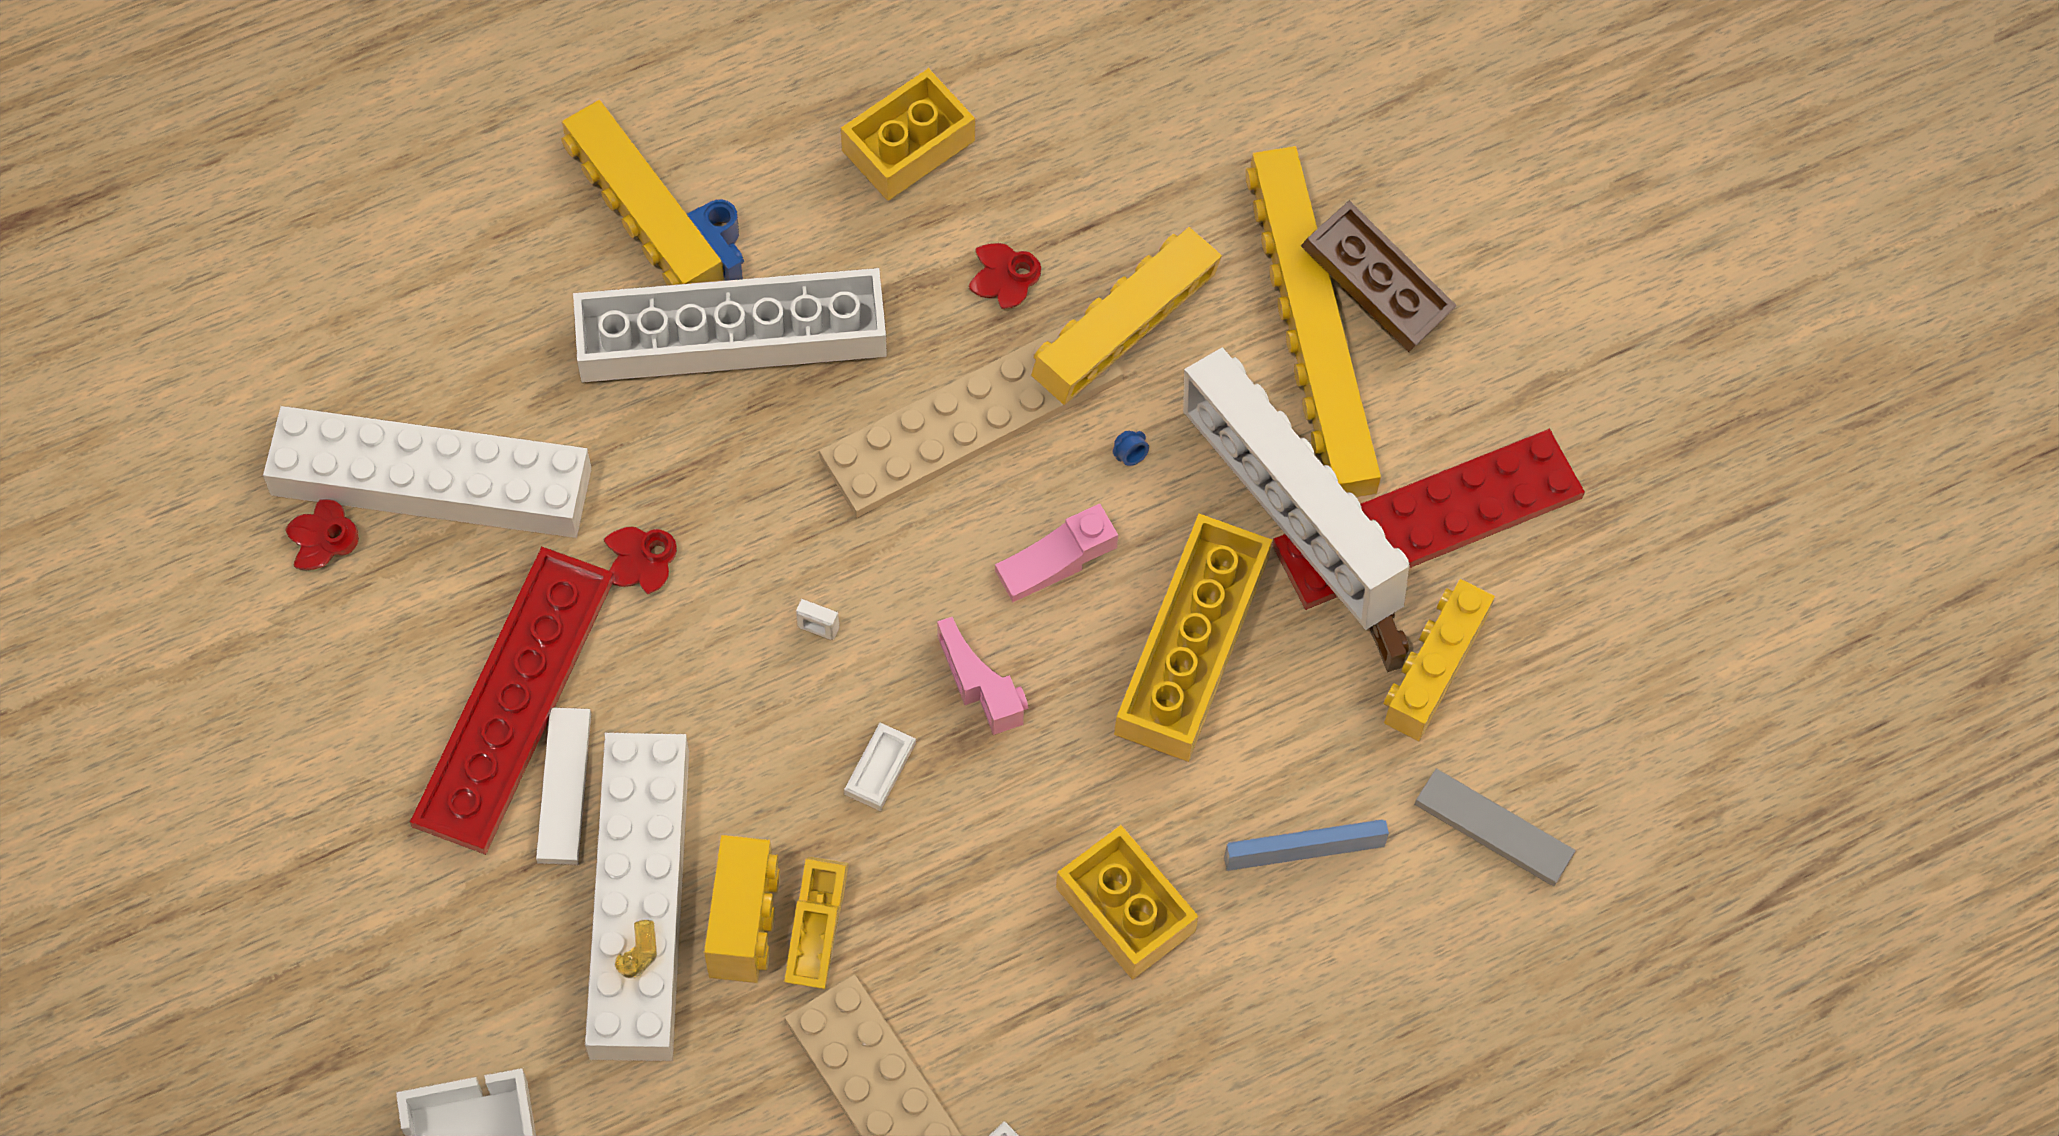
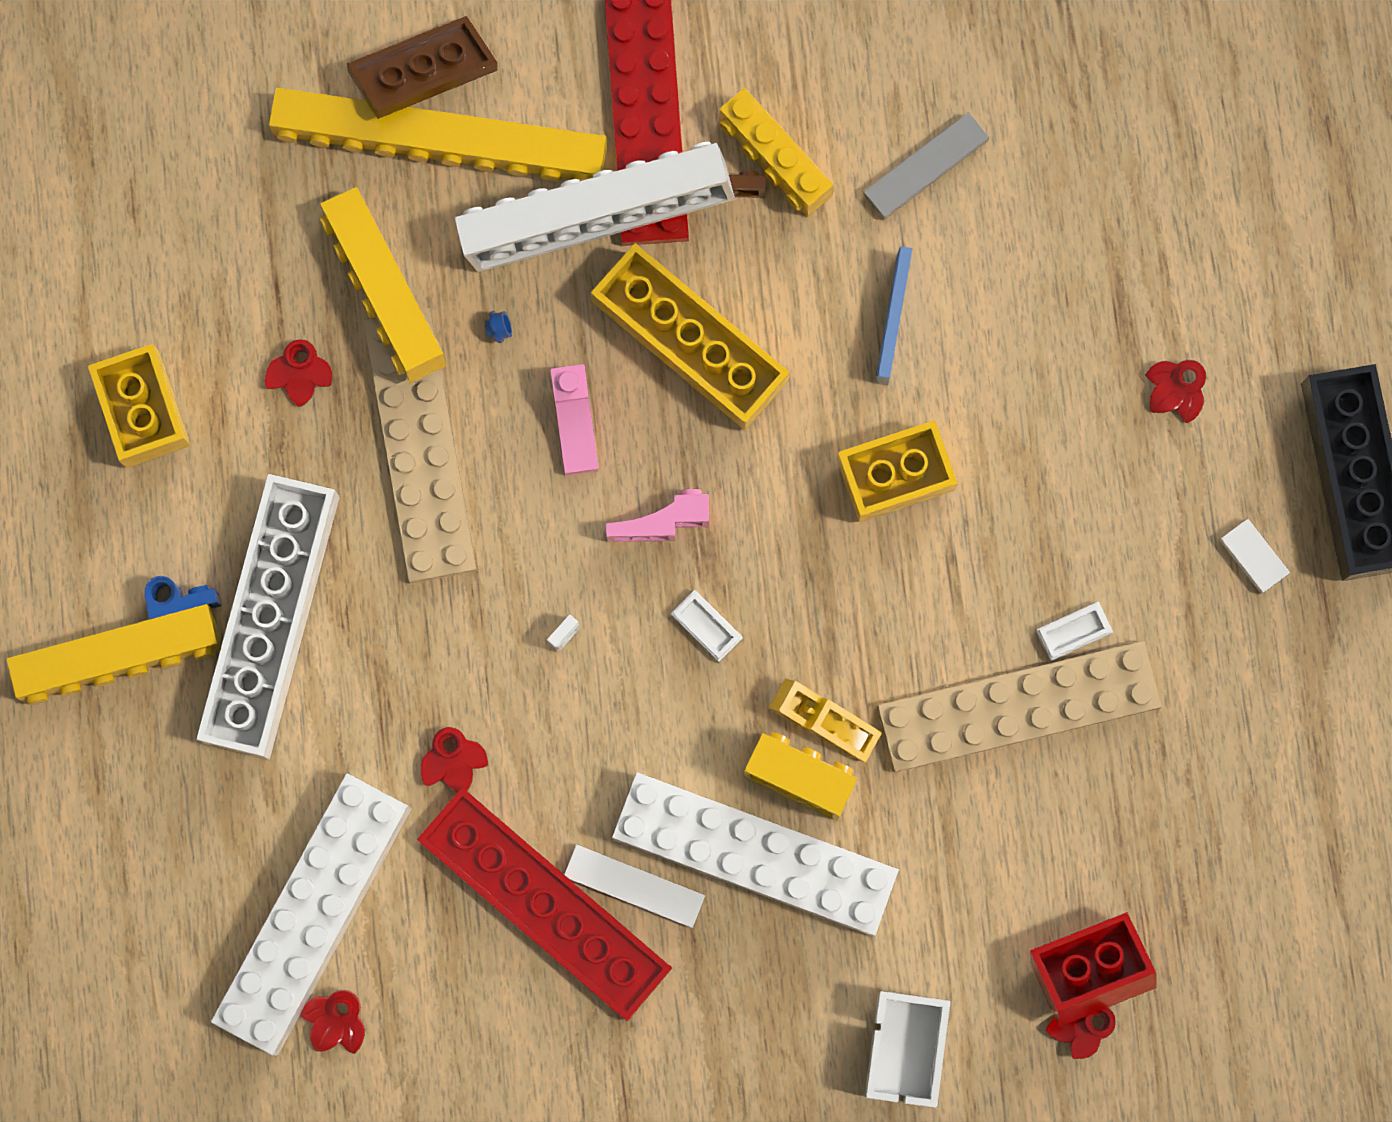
camera: 65 degrees left, 15 degrees up
(642, 954) = (820, 867): clear yellow arm -> none

